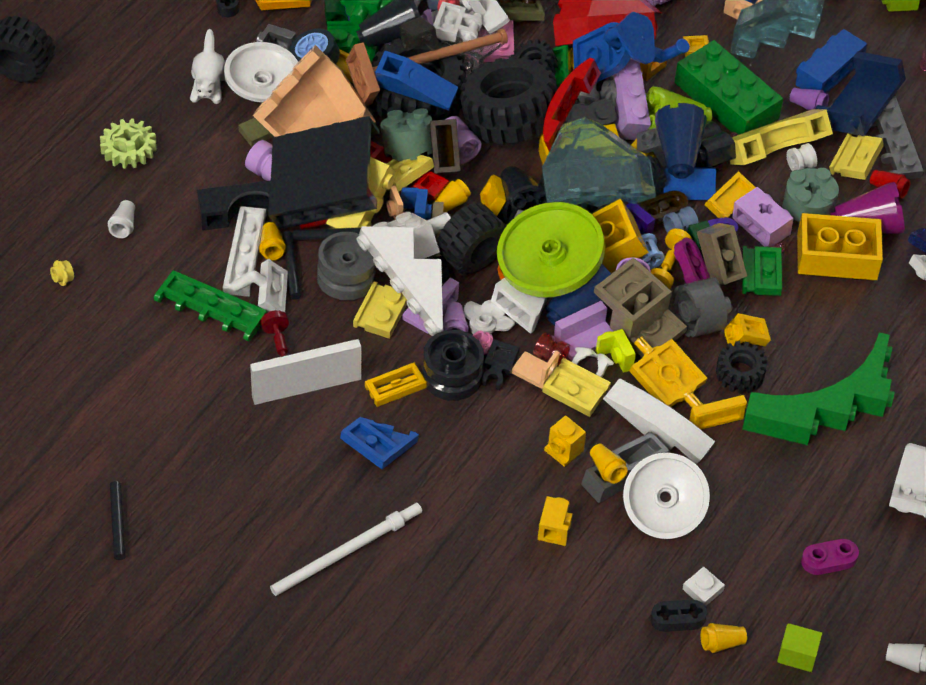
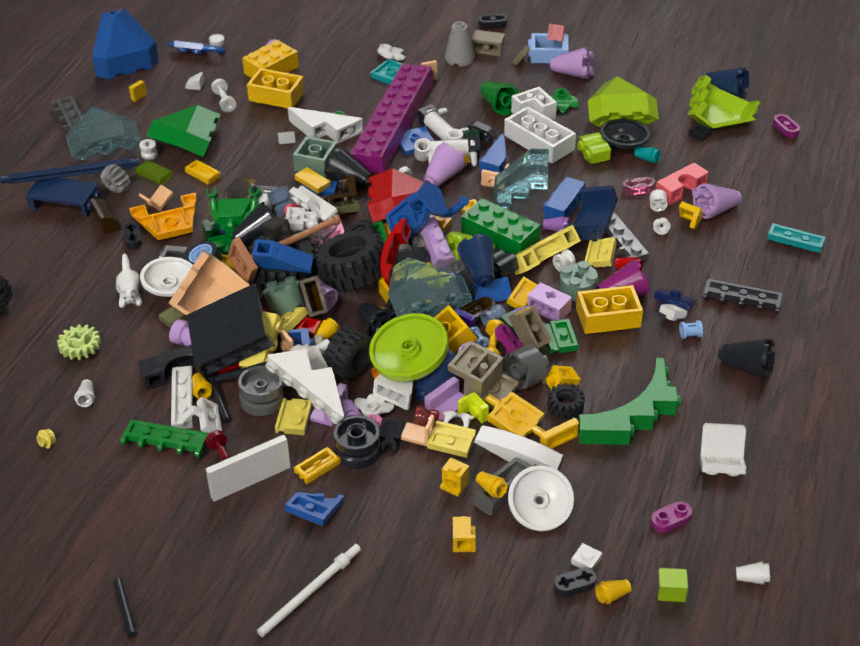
camera: 10 degrees left, 10 degrees down
(493, 194) = (356, 321): yellow tile -> none

